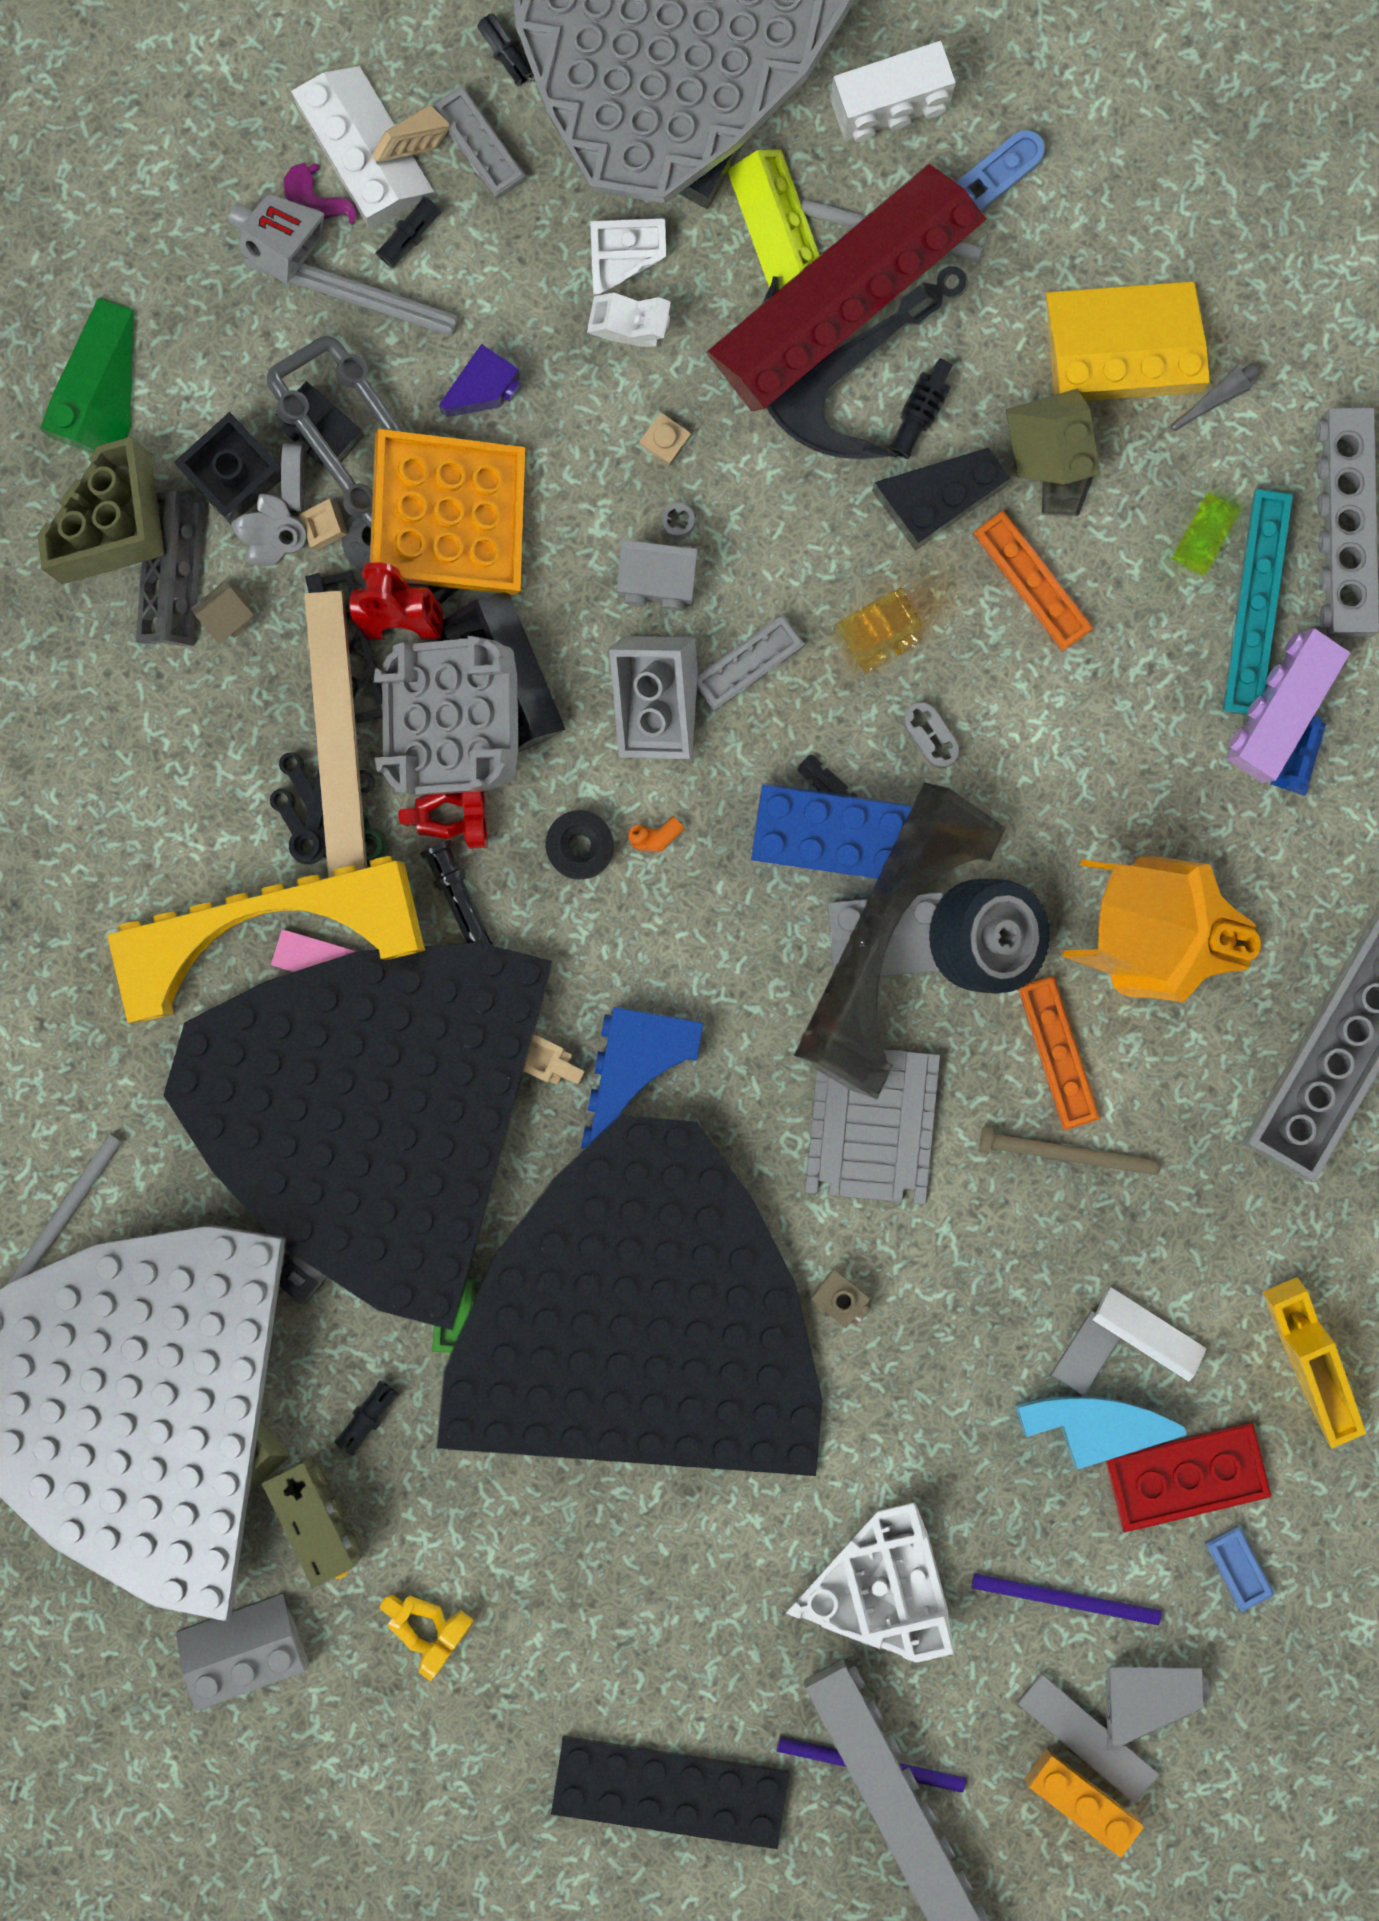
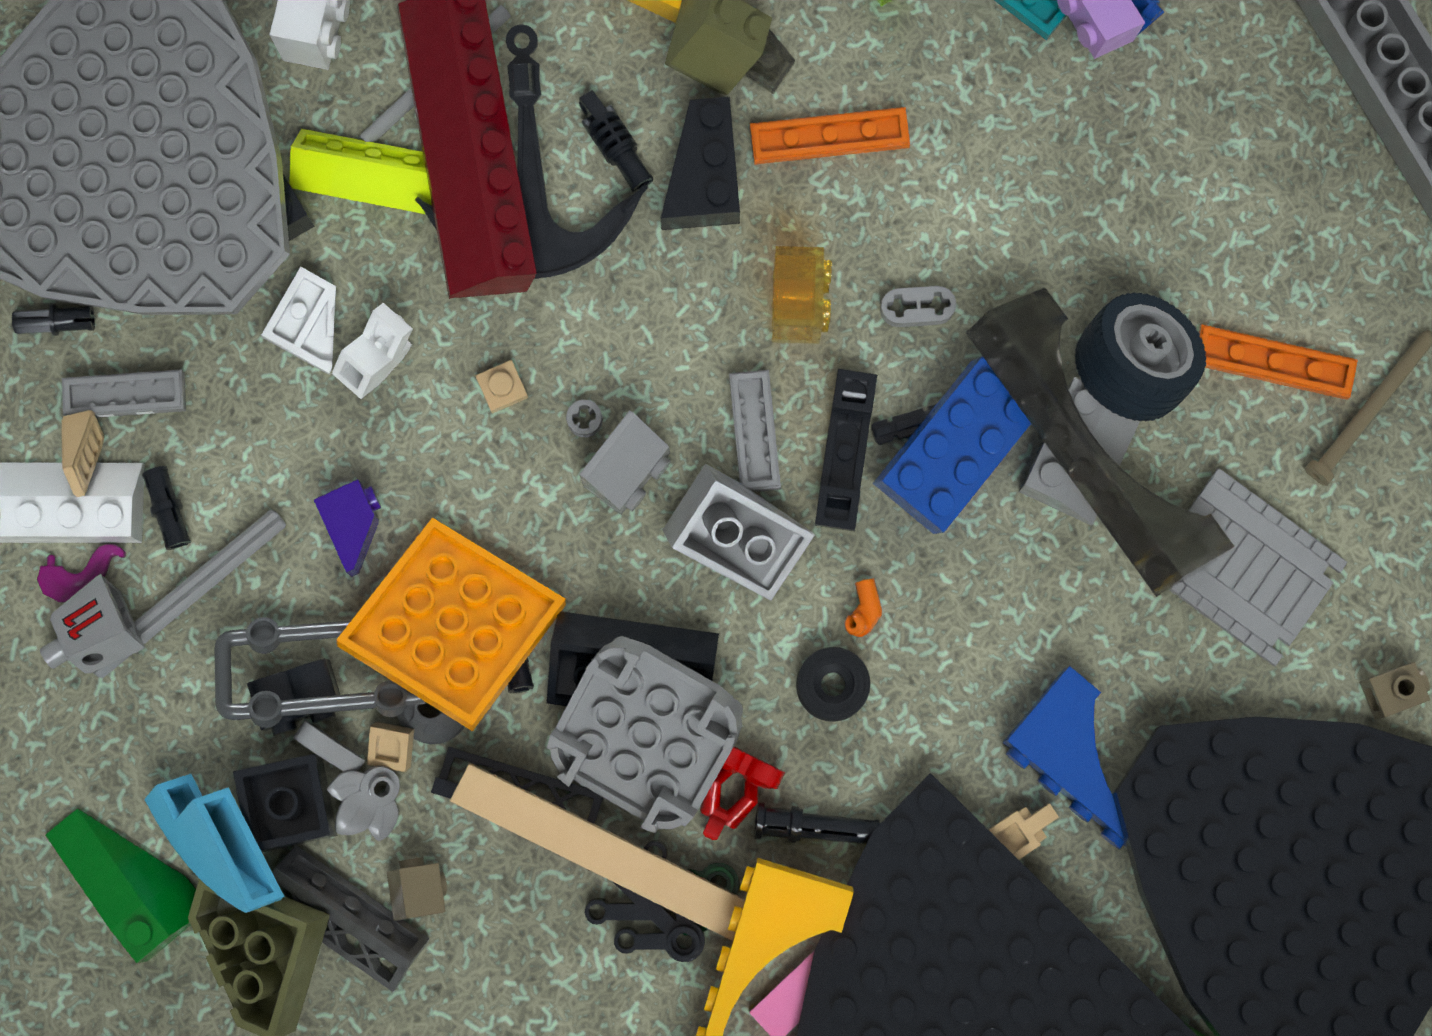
camera: 60 degrees left, 5 degrees down
(166, 431) = (214, 842): none -> medium azure slope
(392, 604) = (509, 723): red piece -> none
(775, 745) = (845, 450): none -> black slope
(1166, 929) = (1225, 192): light orange piece -> none

